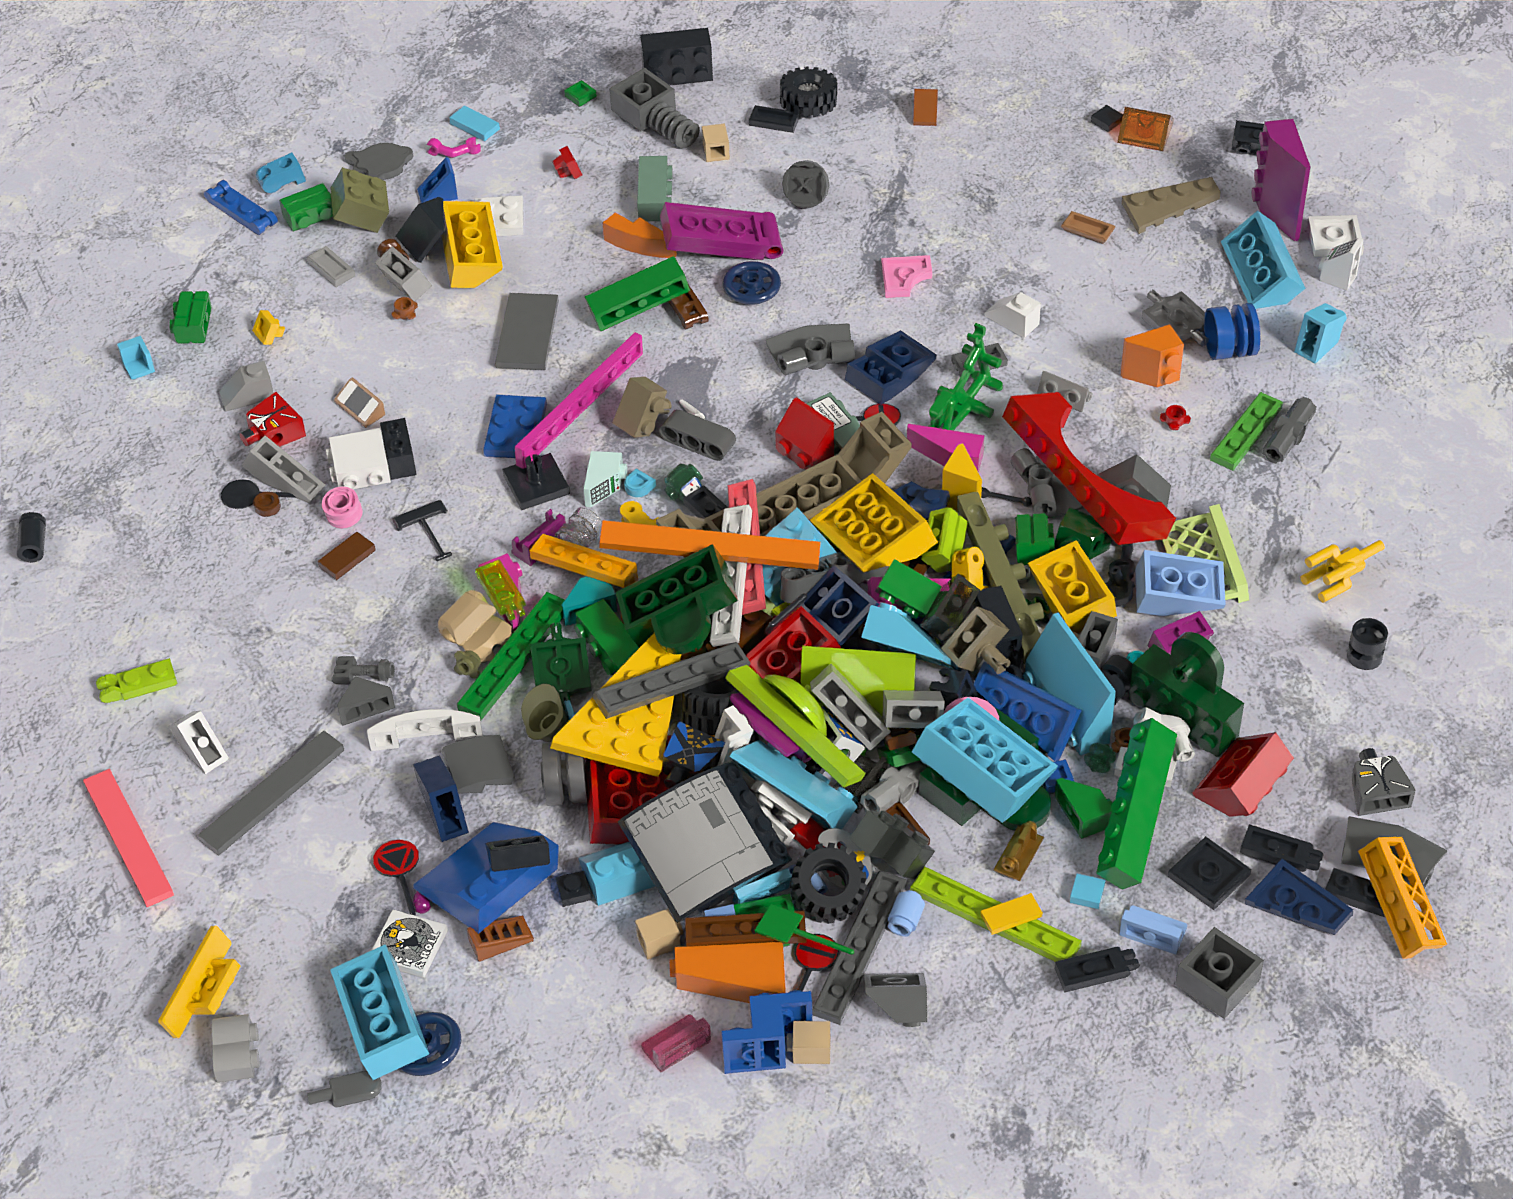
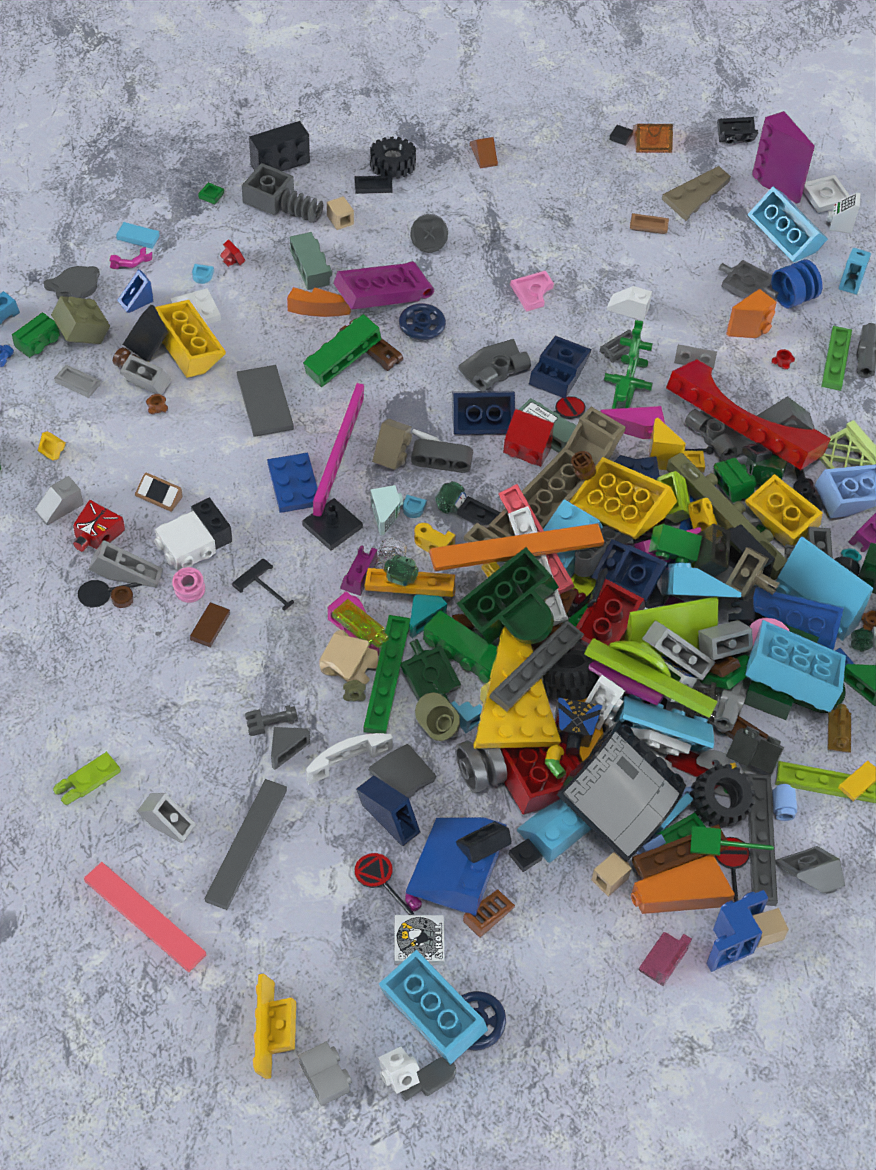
camera: 25 degrees left, 5 degrees up
(312, 1067) = (399, 1070): none -> white brick
(526, 179) = (202, 273): none -> medium azure tile
(572, 542) = (401, 570): none -> clear green head
(644, 786) = (552, 761): none -> arm
(766, 394) = (482, 411): none -> dark blue slope
(843, 476) = (583, 465): none -> reddish brown wheel
(998, 508) = (697, 459): none -> yellow plate
(1071, 512) = (756, 452): none -> black tile

